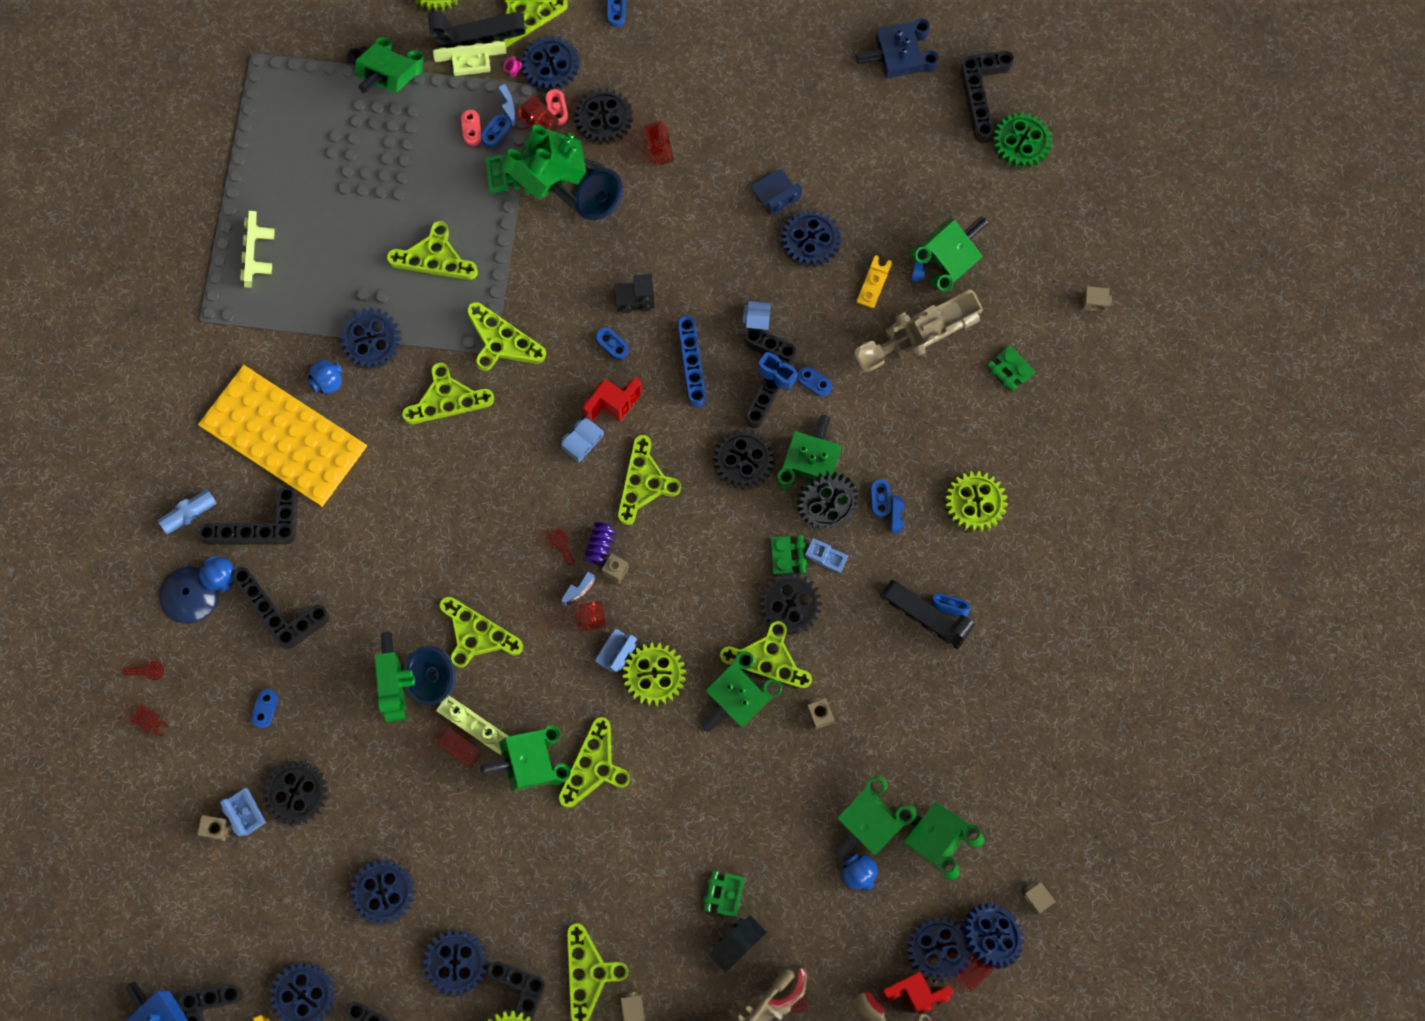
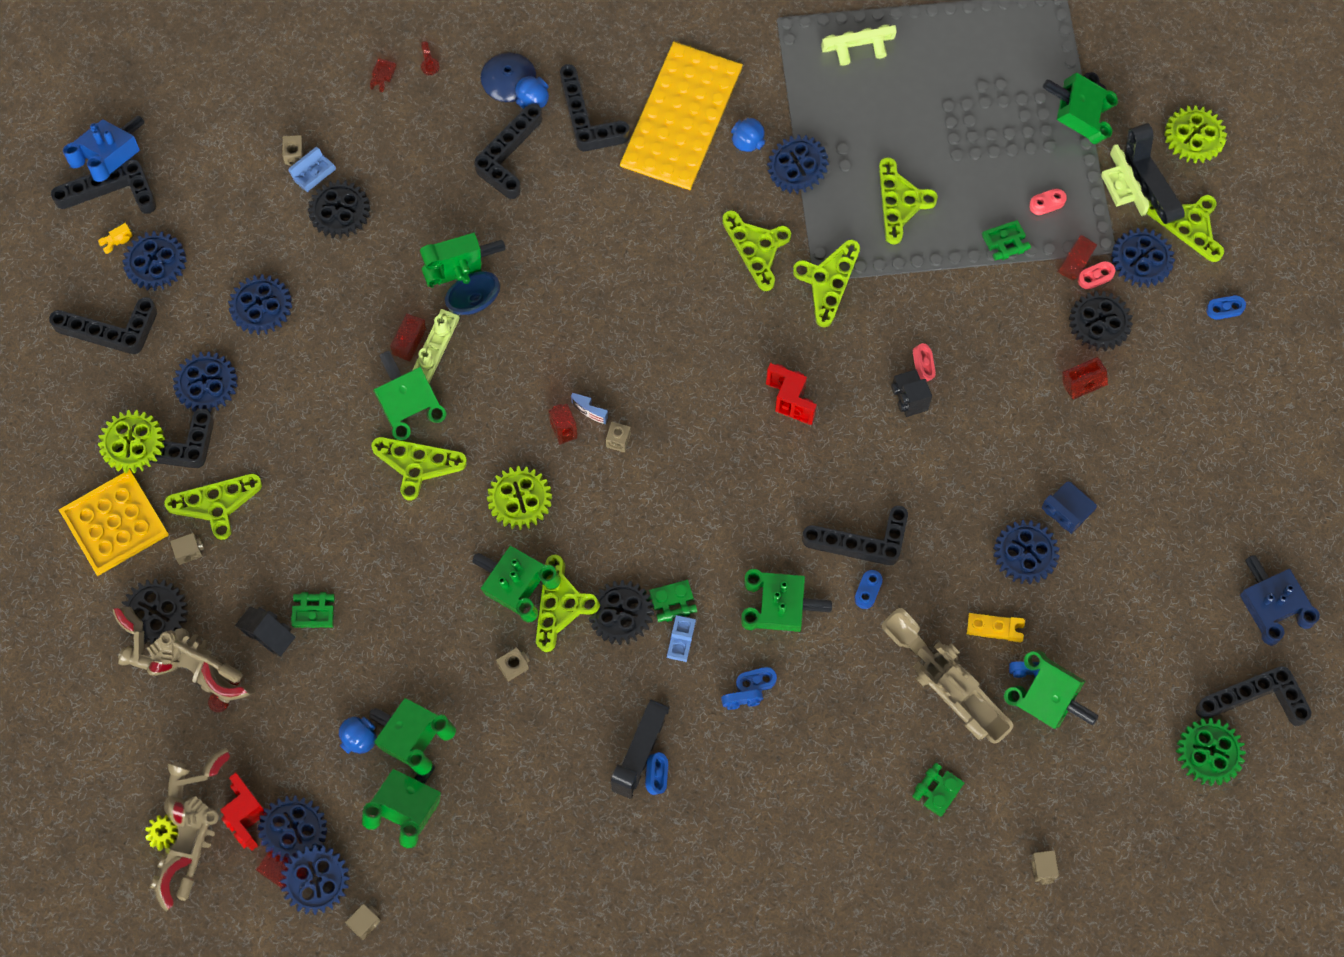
camera: 80 degrees right, 5 degrees down
(187, 511) = (586, 54): medium blue piece -> none
(265, 708) = (414, 165): blue plate -> none
(468, 629) = (528, 320): lime beam -> none
(495, 131) = (1051, 224): blue plate -> none
(508, 107) = (1078, 228): medium blue slope -> none
(512, 66) = (1127, 223): dark pink plate -> none
(537, 184) = (1013, 270): green piece -> none
(558, 155) = (1037, 286): green piece -> none
(559, 539) = (637, 380): clear red plate -> none
(581, 439) = (745, 377): medium blue brick -> none
(598, 194) = (1010, 333): dark blue dish -> none
(599, 543) = (640, 418): dark purple piece -> none
(606, 277) = (924, 362): none -> coral plate
(612, 344) = (854, 385): blue plate -> none
(615, 650) = (535, 454): medium blue bracket -> none
(645, 473) = (706, 447): lime beam -> none
(691, 353) = (862, 456): blue beam -> none
(753, 445) = (746, 529): black gear -> none
(757, 315) = (922, 513): medium blue brick -> none
(773, 369) = (861, 540): blue brick -> none
(827, 500) = (734, 636): black gear -> none
(959, 503) = (784, 796): lime gear -> none

